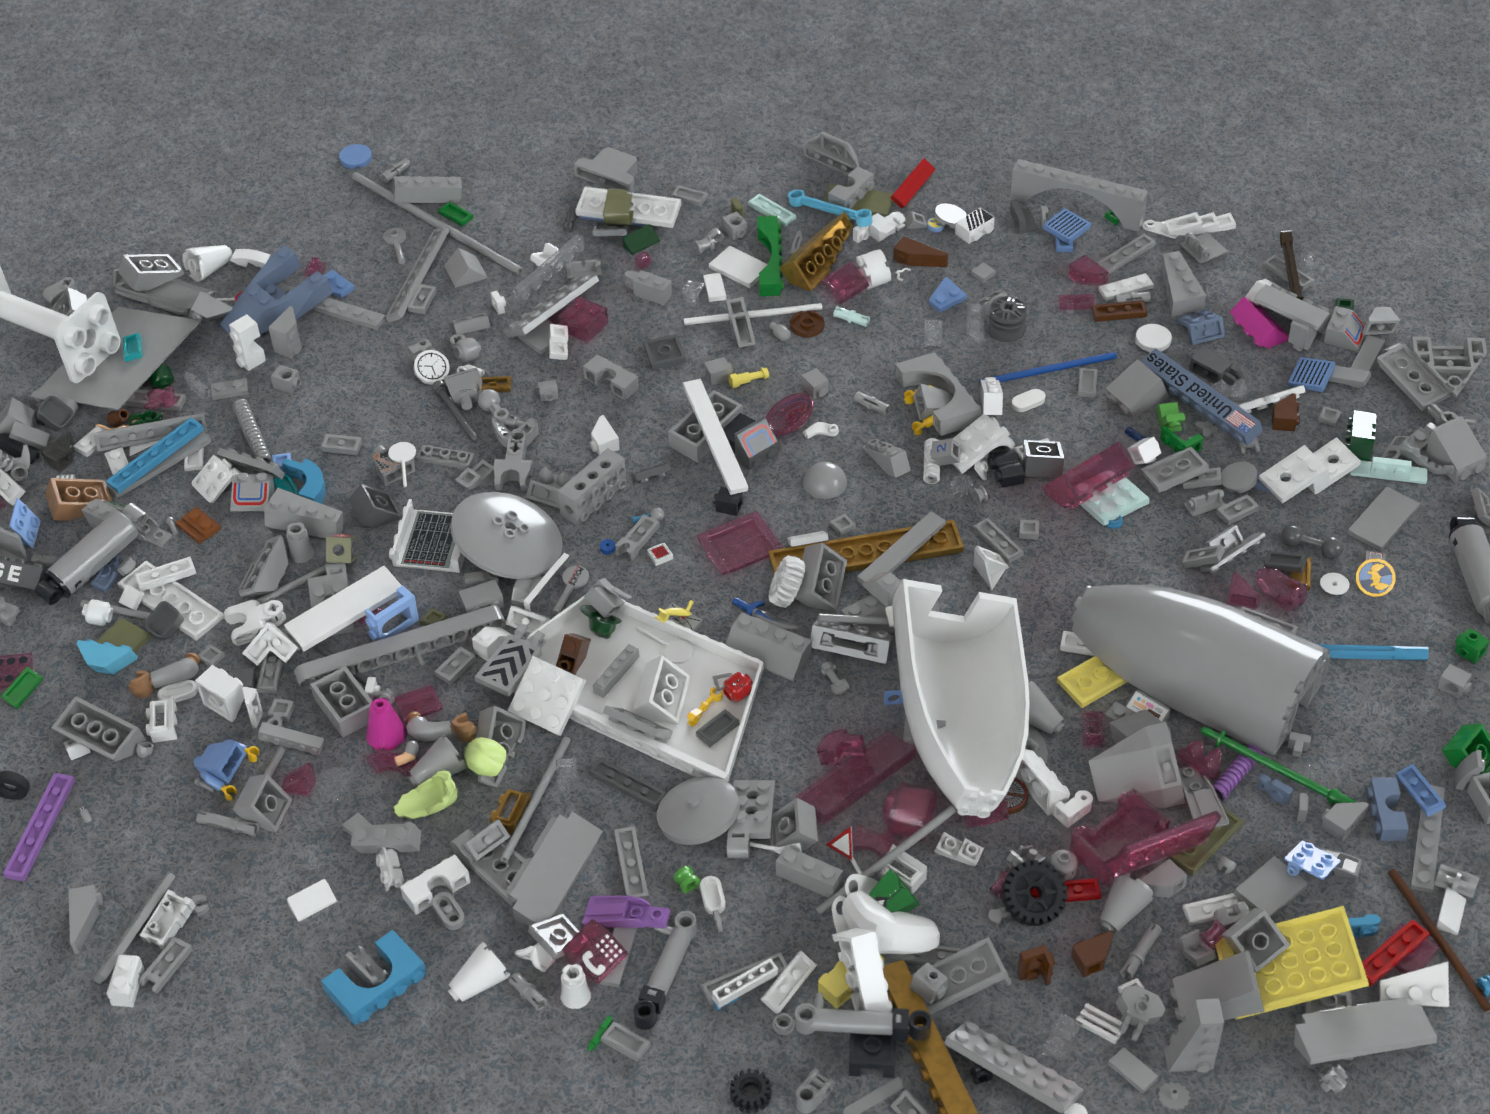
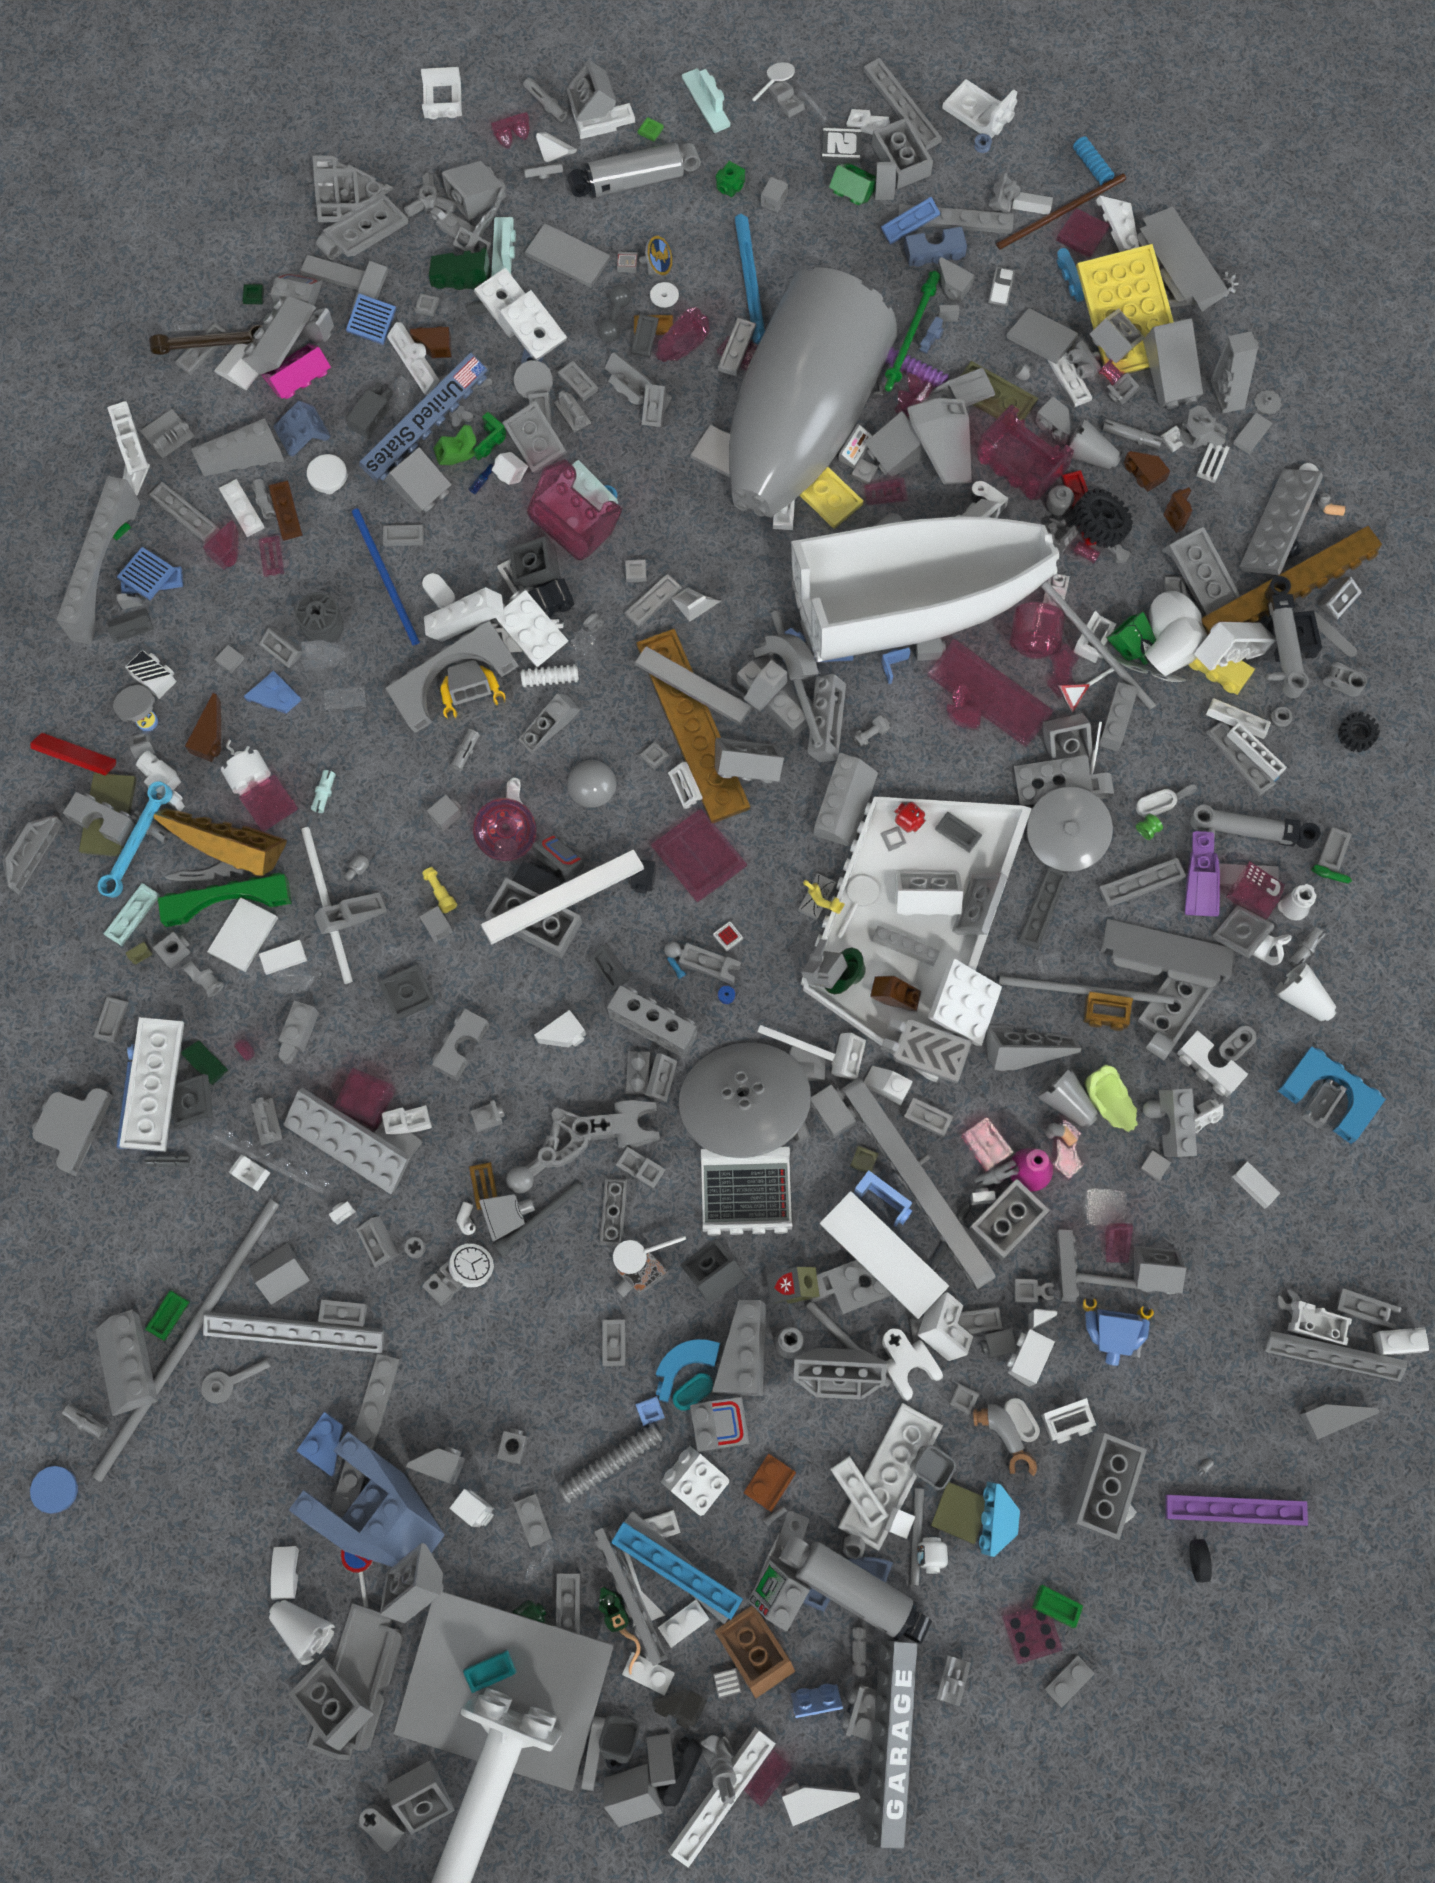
camera: 100 degrees left, 25 degrees up
(117, 417) = (617, 1639): reddish brown cone -> none
(144, 749) = (1108, 1424): light grey hinge -> none
(161, 398) = (573, 1604): clear pink plate -> none
(236, 824) = (1184, 1306): light grey pin -> none
(247, 461) = (672, 1437): light grey plate -> none
(315, 265) = (294, 1476): clear pink tile -> none
(427, 731) = (1025, 1123): piece -> none
(467, 349) = (432, 1230): light grey head -> none
(484, 756) = (1057, 1050): yellowish green hair -> none
(486, 840) = (1159, 1020): light grey plate -> none
(573, 578) = (780, 1018): light grey piece -> none
(617, 207) = (166, 1088): olive piece -> none
(696, 714) = (950, 855): yellow piece -> none
(762, 615) = (795, 817): piece -> none
(786, 581) = (764, 788): white gear -> none
(807, 323) = (343, 843): reddish brown tile -> none
(929, 983) = (1227, 590): light grey brick -> none
(945, 451) = (553, 653): light grey brick -> none
(1162, 845) = (1043, 408): clear pink arch -> none
(1242, 593) = (692, 373): clear pink slope -> none
(1310, 859) = (1013, 300): light blue hinge -> none
(1381, 321) = (281, 257): light grey slope -> none
(1394, 951) = (1088, 236): red tile -> none

